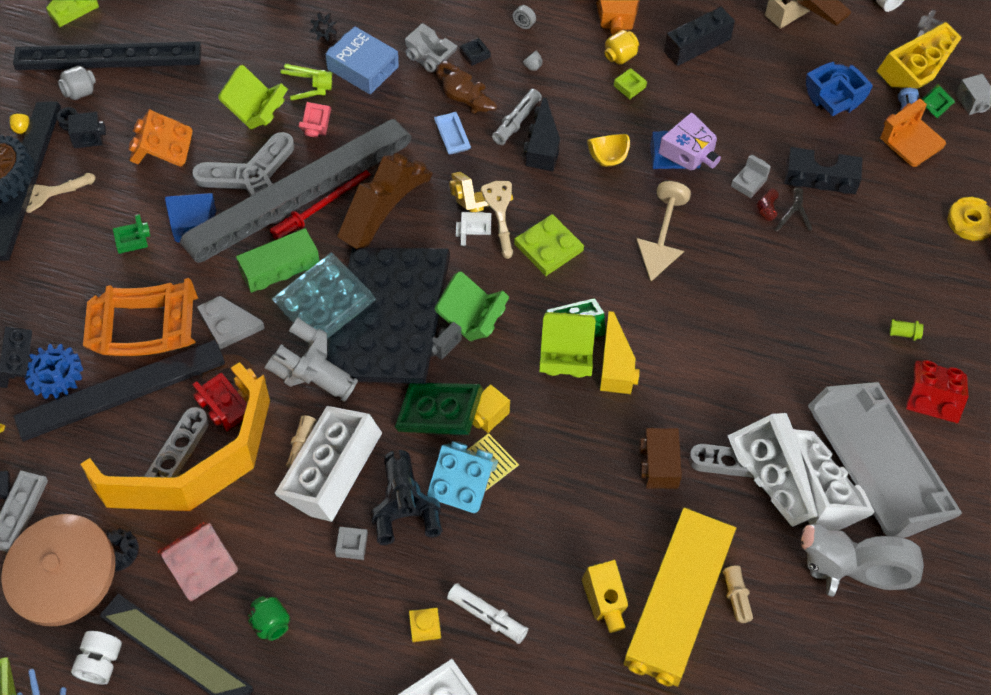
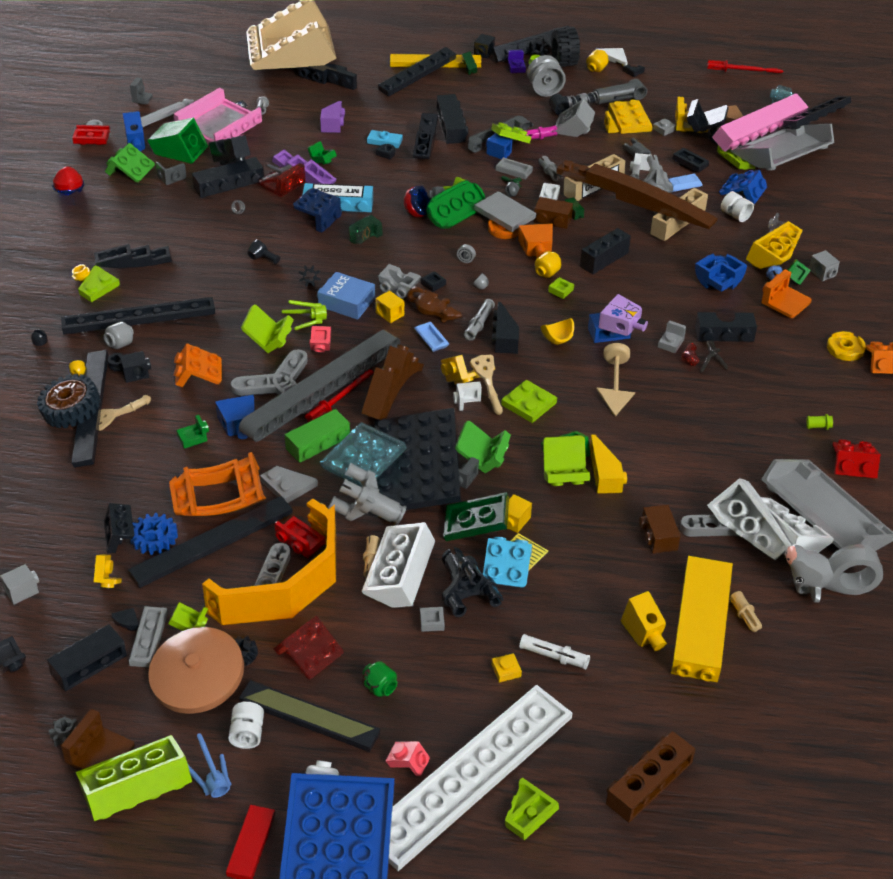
camera: 10 degrees left, 15 degrees down
(65, 497) = (187, 618): none -> lime bracket
(410, 83) = (389, 306): none -> yellow brick

